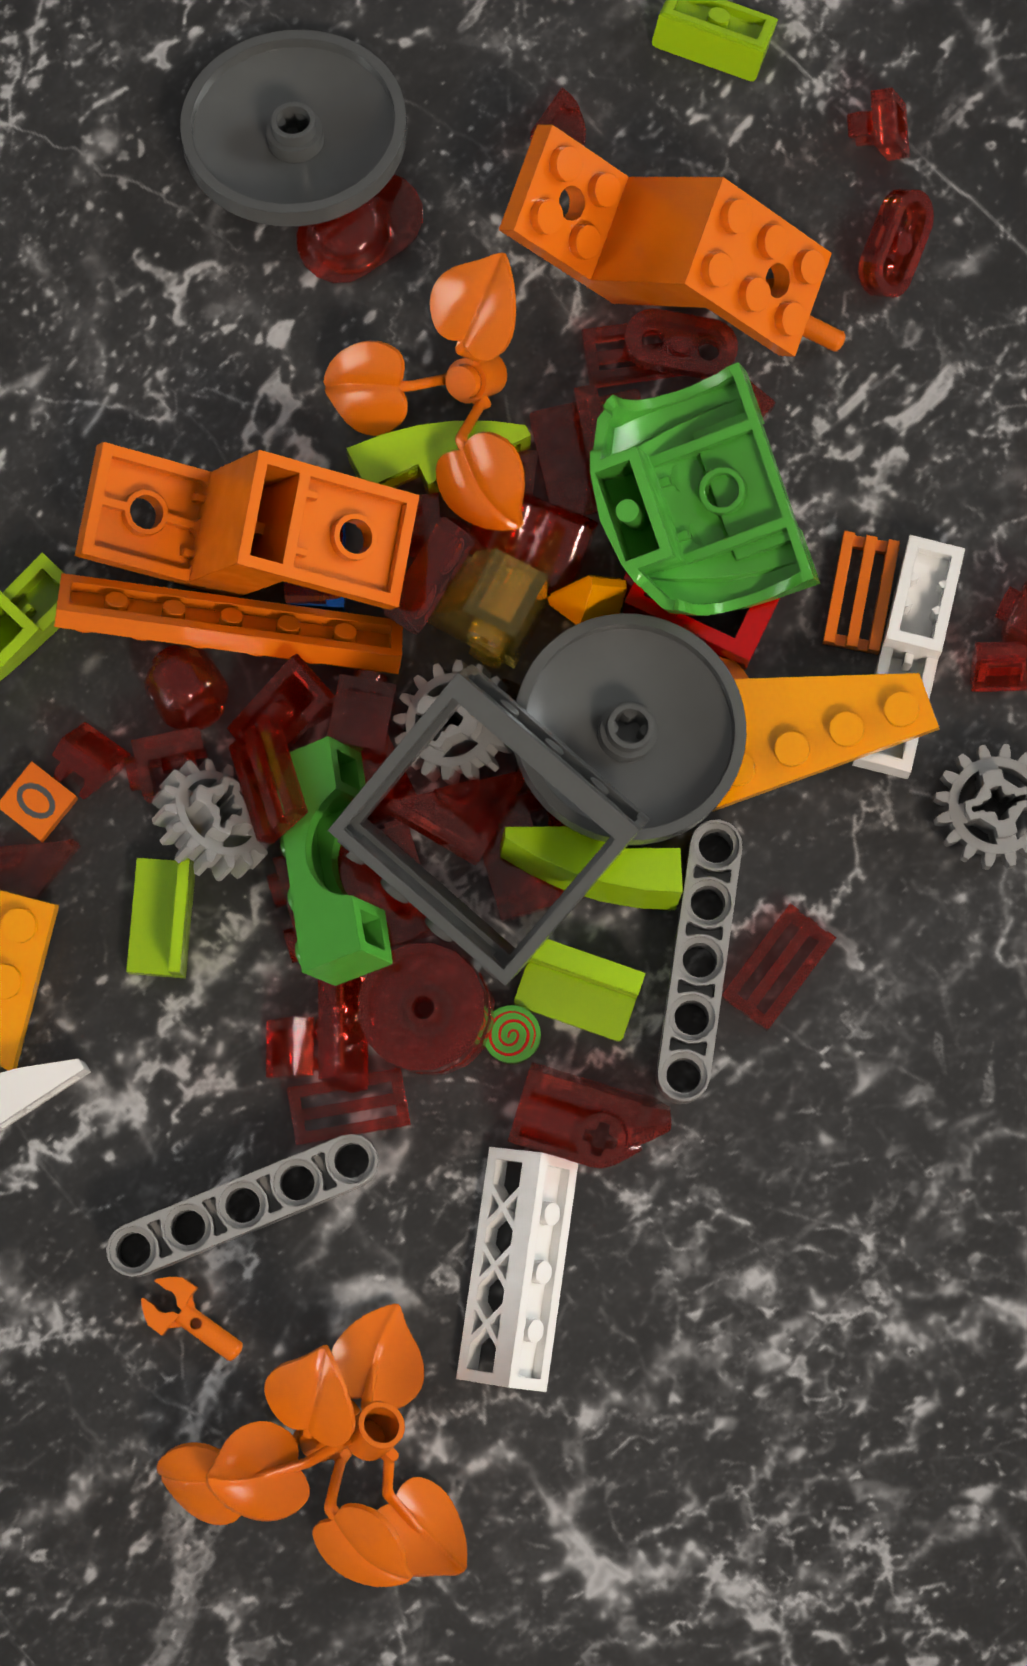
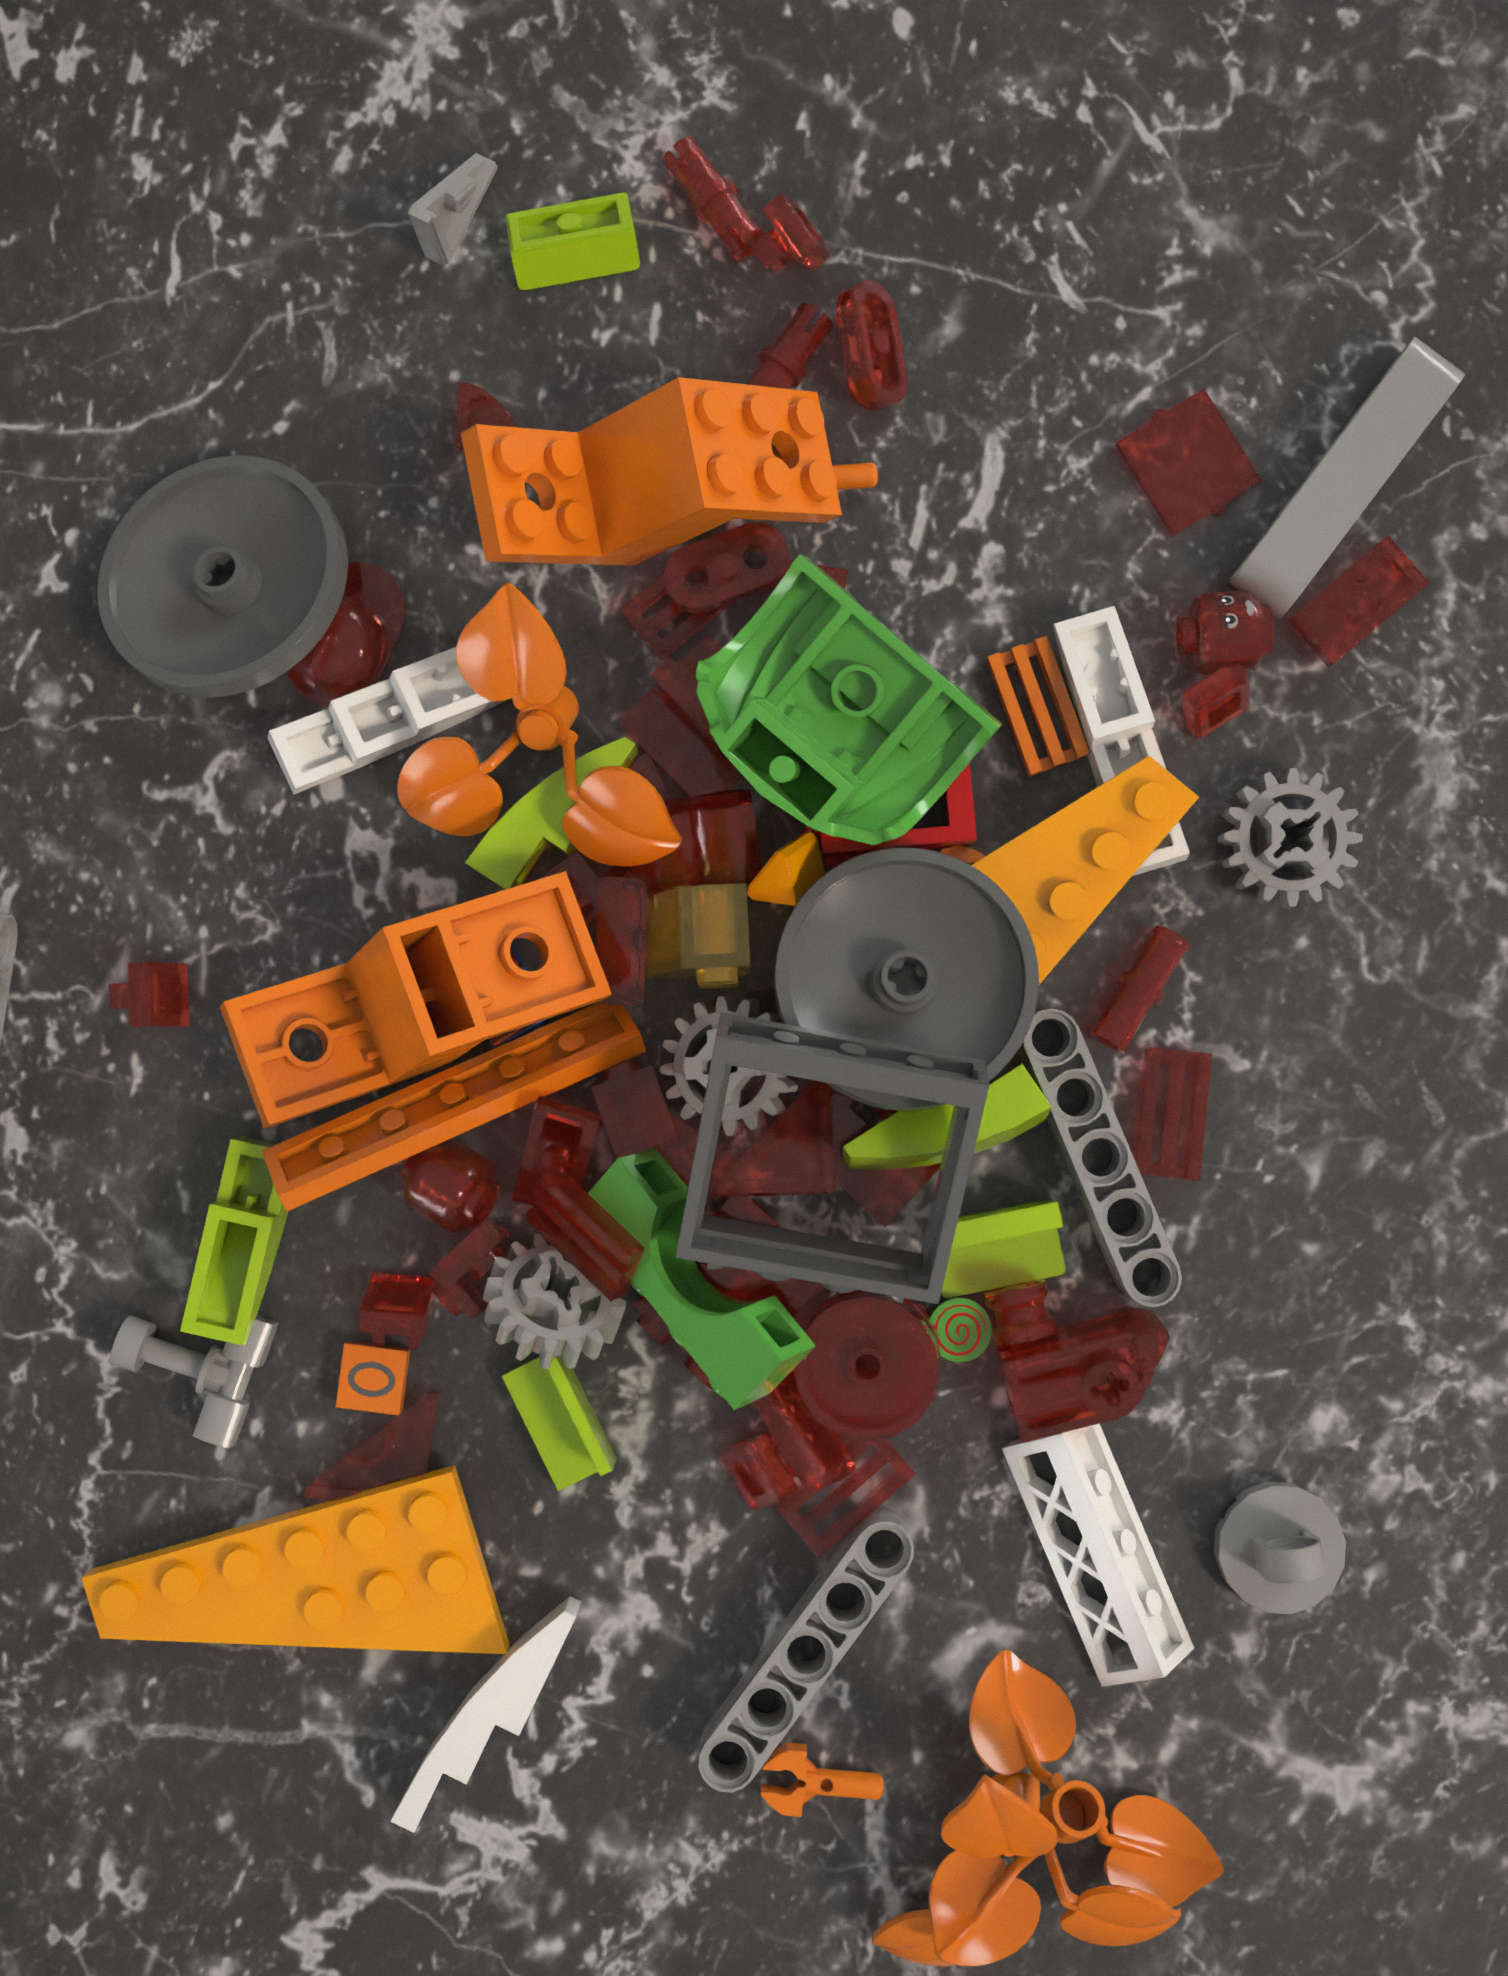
camera: 30 degrees left, 5 degrees up
(48, 411) = (154, 995): none -> clear red tile
(344, 306) = (376, 721): none -> white slope
(566, 1046) = (1020, 1313): none -> clear red wheel
(661, 1354) = (1280, 1547): none -> light grey tile
(810, 854) = (1140, 989): none -> clear red pin
(821, 216) = (785, 361): none -> clear red pin
(841, 61) = (713, 198): none -> clear red pin

